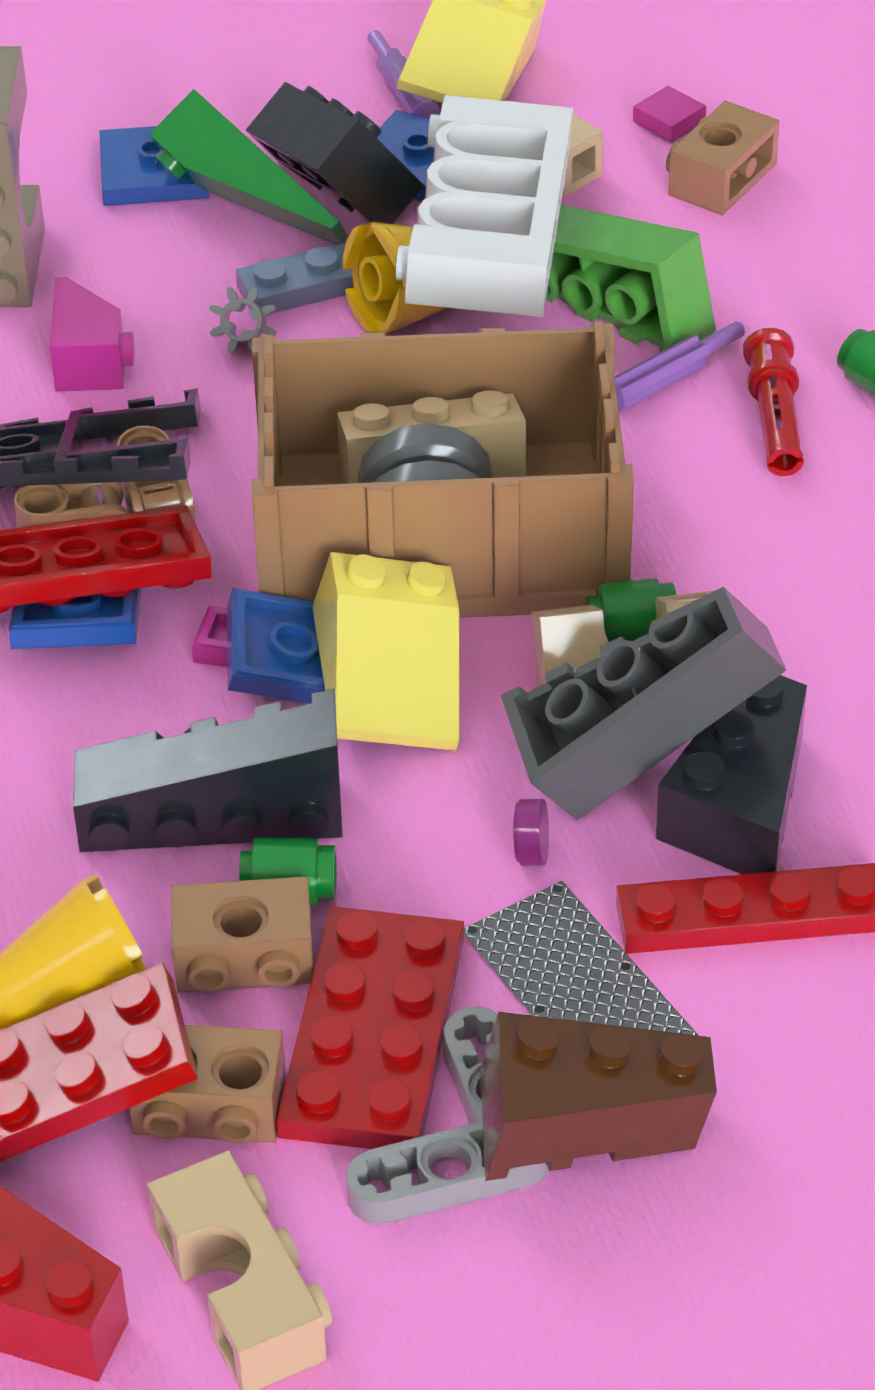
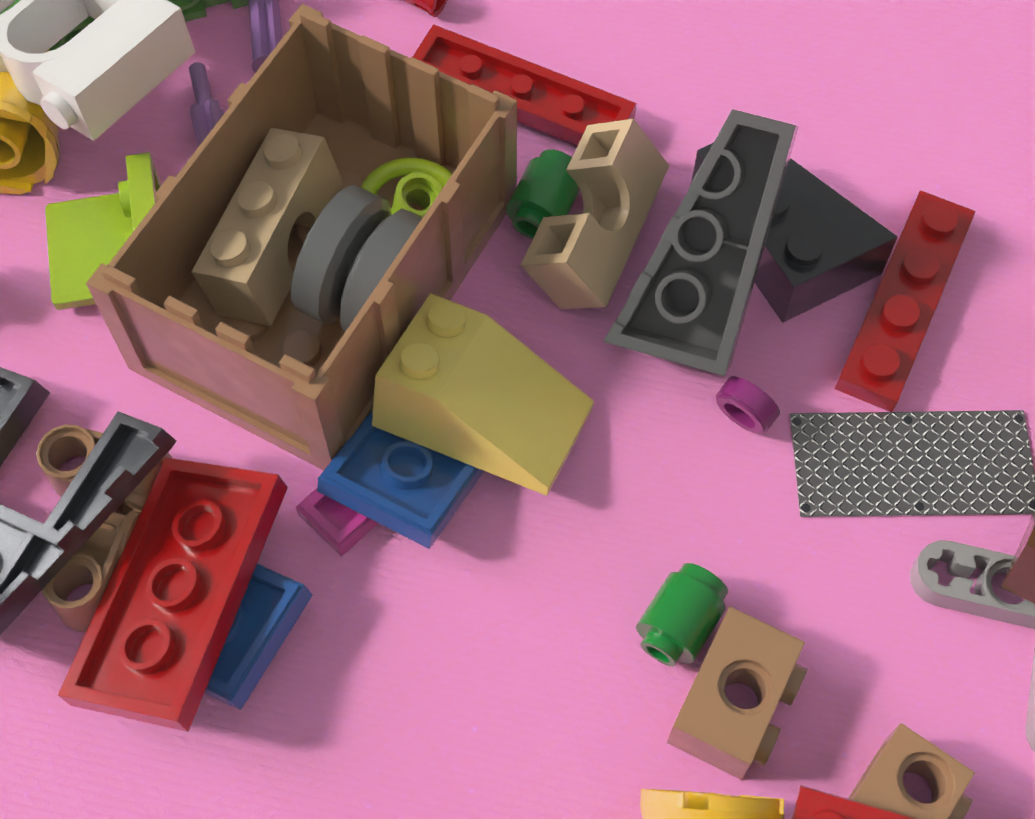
camera: 60 degrees left, 20 degrees up
(214, 782) = (549, 625): black wedge -> none
(371, 1029) = (885, 640): red plate -> none
(734, 540) = (543, 96): none -> red plate

